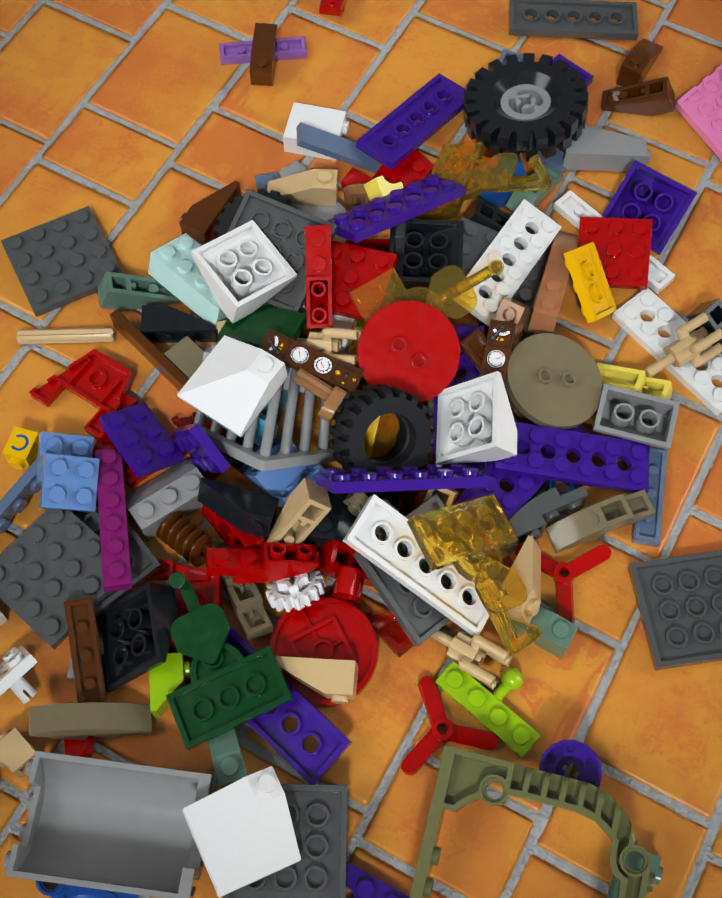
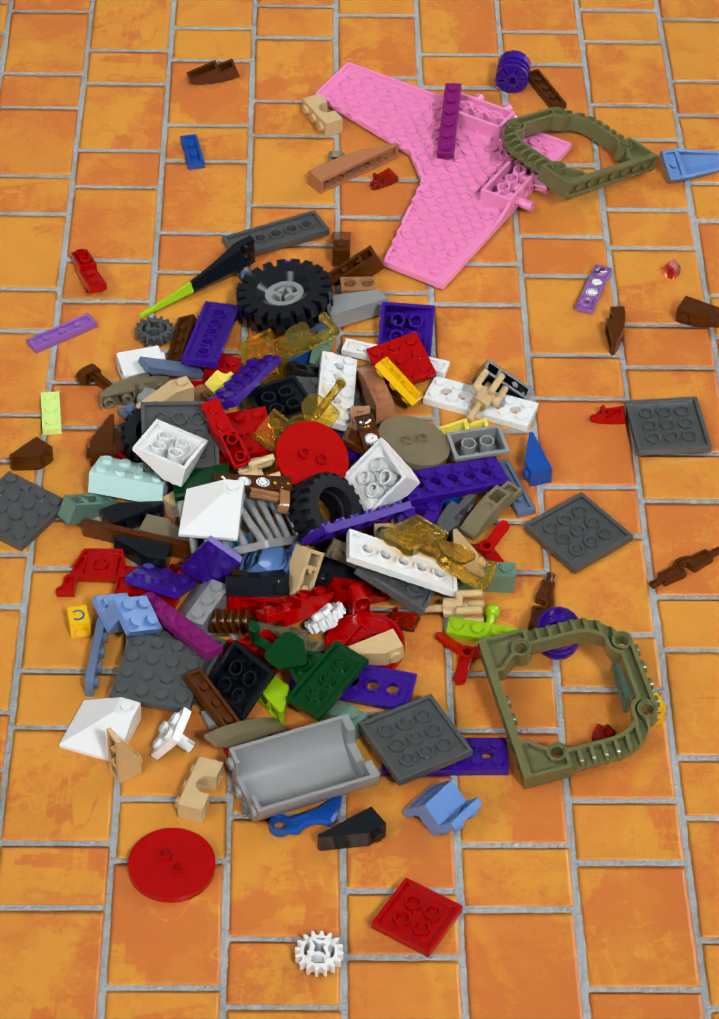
camera: 30 degrees left, 20 degrees down
(70, 335) = (54, 551): tan axle -> none
(123, 196) = (31, 456): none -> reddish brown slope
(158, 387) = (144, 550): none -> black slope
(184, 148) = (51, 413): none -> yellowish green plate
(244, 831) = (387, 726): white slope -> none
(256, 117) = (90, 374): none -> reddish brown piece
(263, 54) = (69, 333): reddish brown slope -> none
(276, 154) = (126, 390): none -> dark tan slope
(359, 89) = (154, 331): none -> dark grey gear
(390, 102) = (181, 337): none -> reddish brown tile
(491, 36) = (227, 265): none -> black plate
(574, 711) = (543, 598): none -> reddish brown piece
(625, 122) = (357, 284): none -> medium nougat brick
(696, 480) = (536, 466): none -> blue slope

